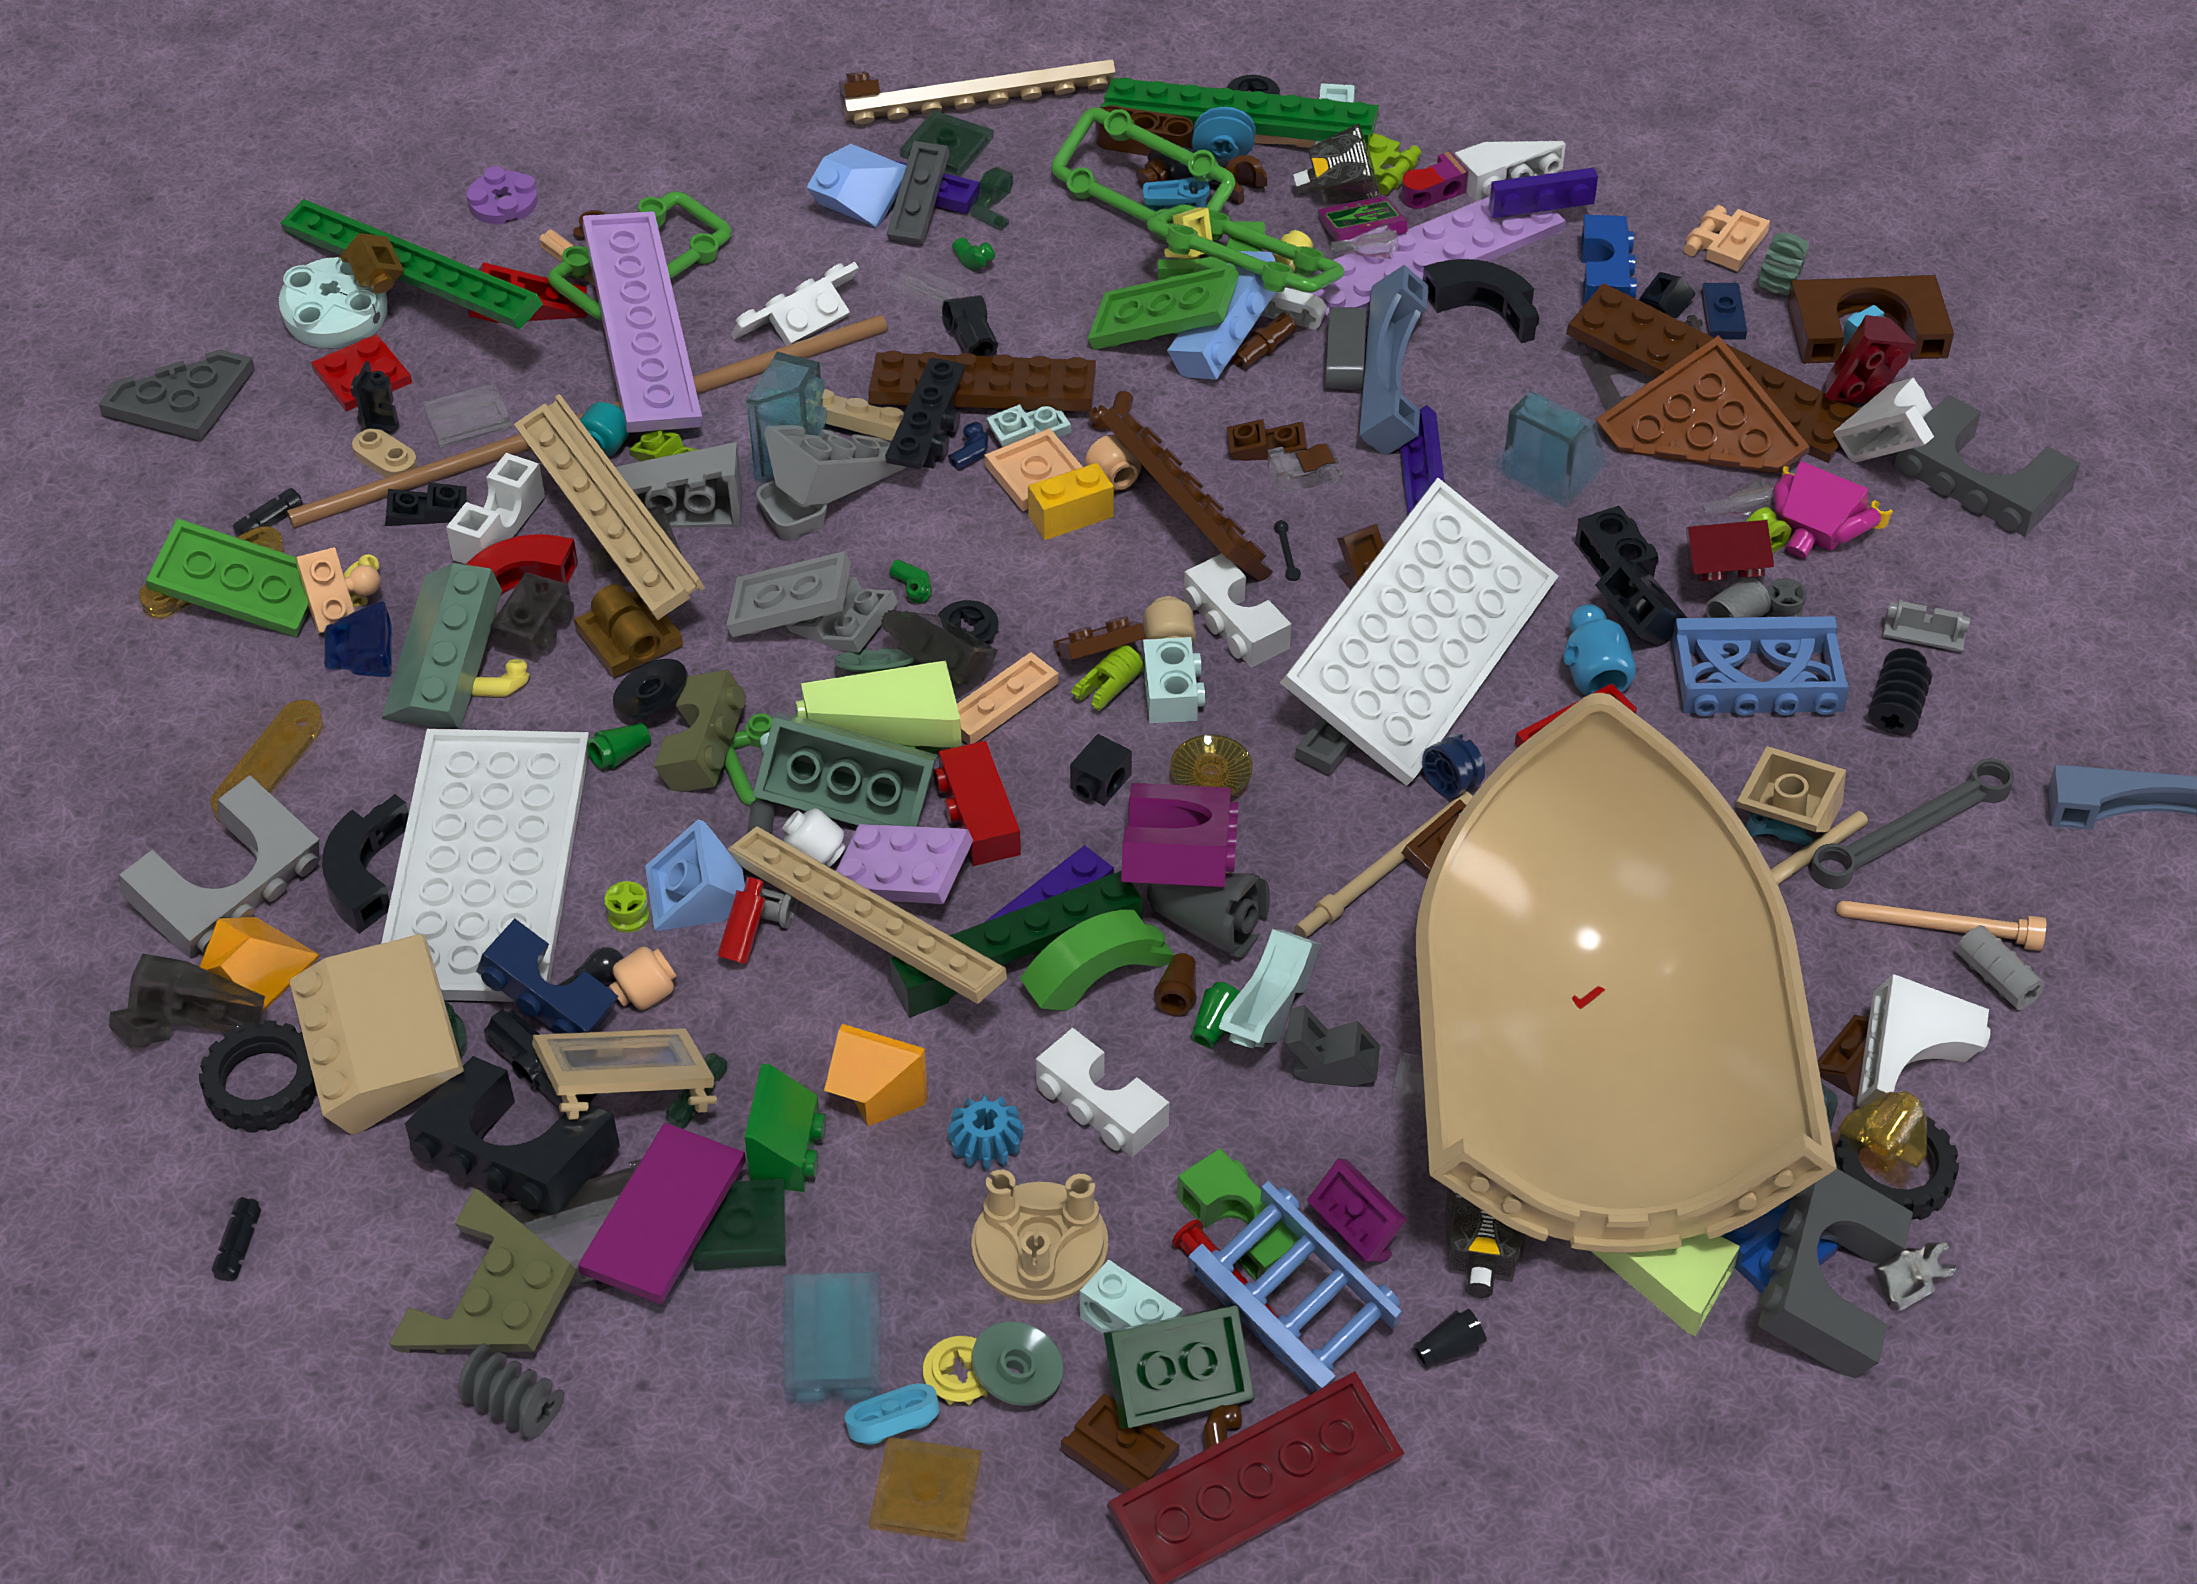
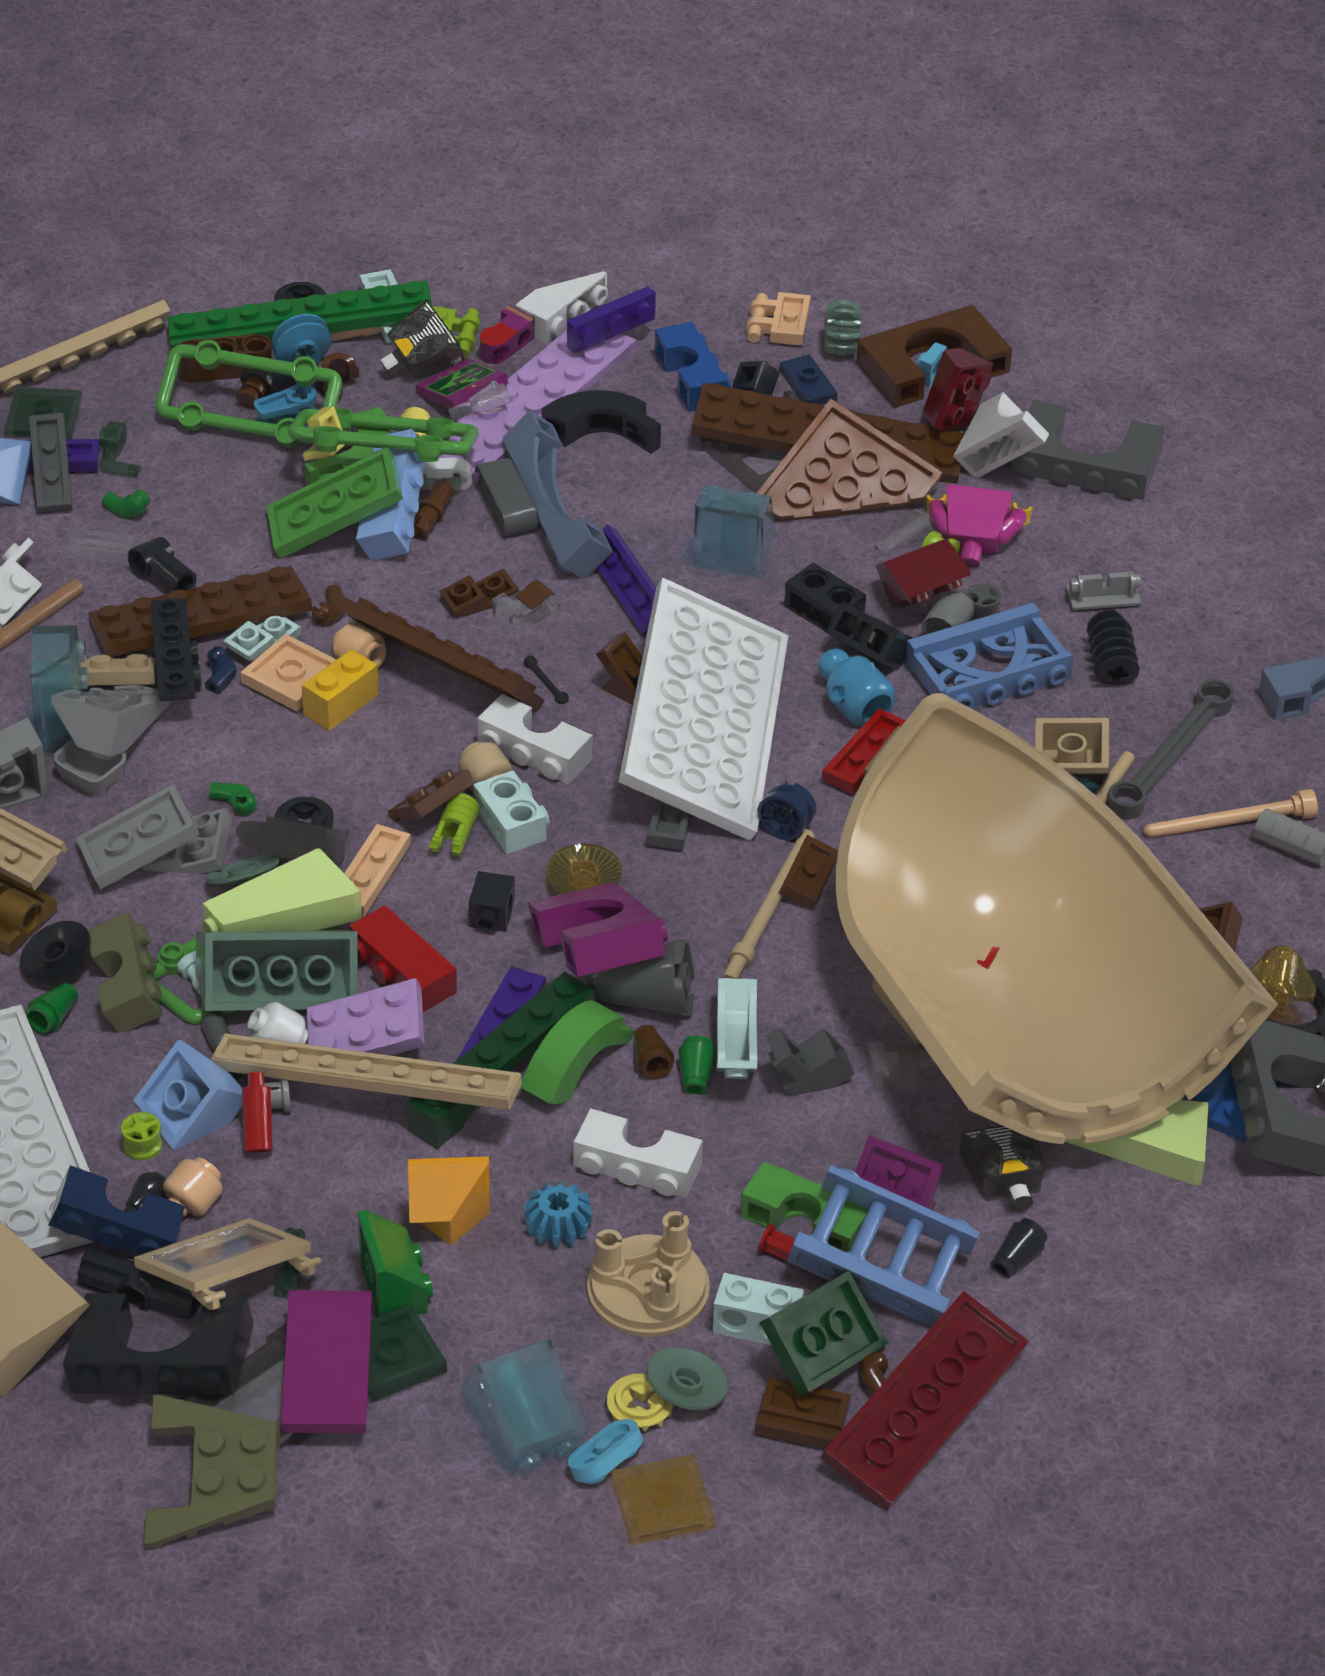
camera: 25 degrees left, 5 degrees down
(508, 1393) = (274, 1543): dark grey piece -> none
(1913, 1025) = (1255, 897): white arch -> none

